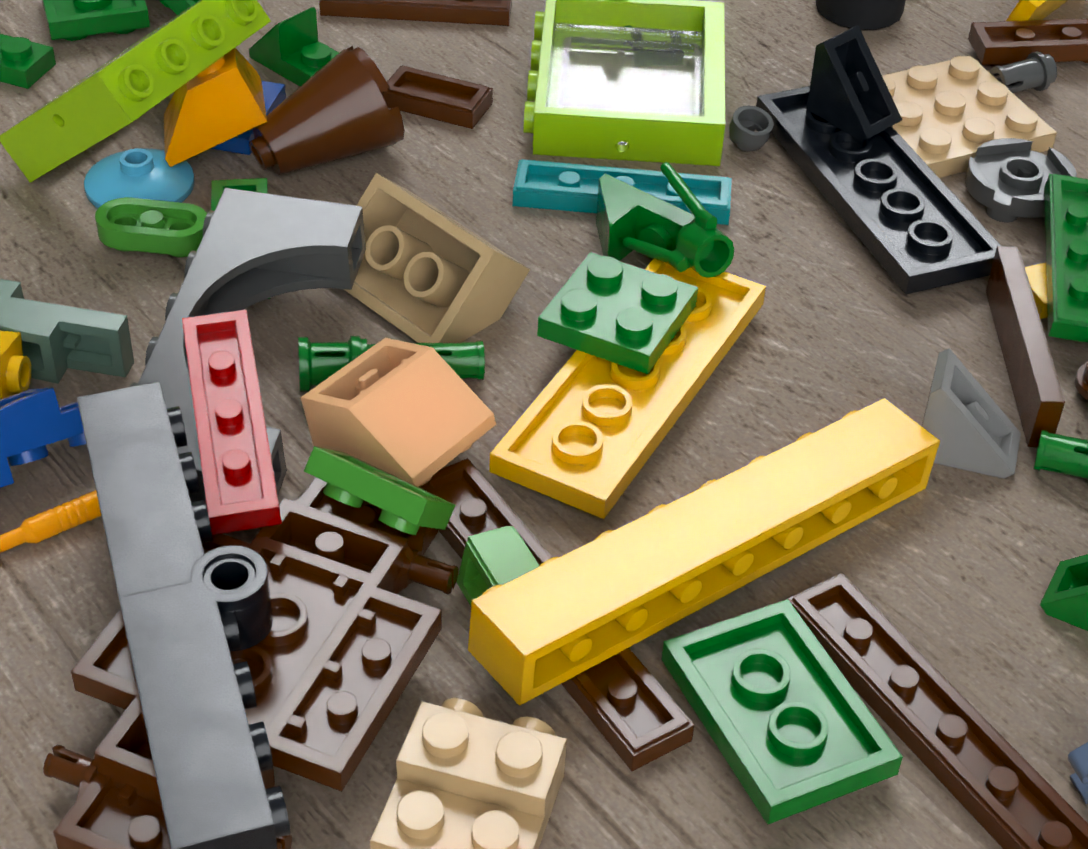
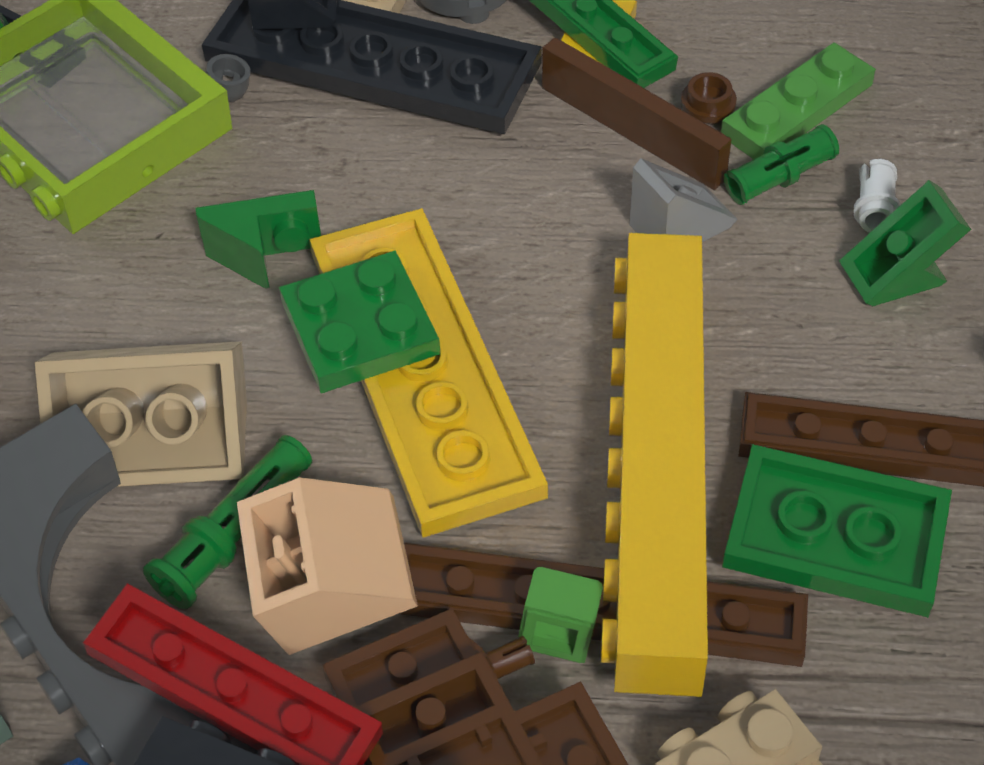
camera: 45 degrees left, 10 degrees up
(401, 503) = (434, 626): bright green plate -> none
(576, 187) = (171, 225): teal tile -> none
(697, 243) = (348, 212): green plant -> none

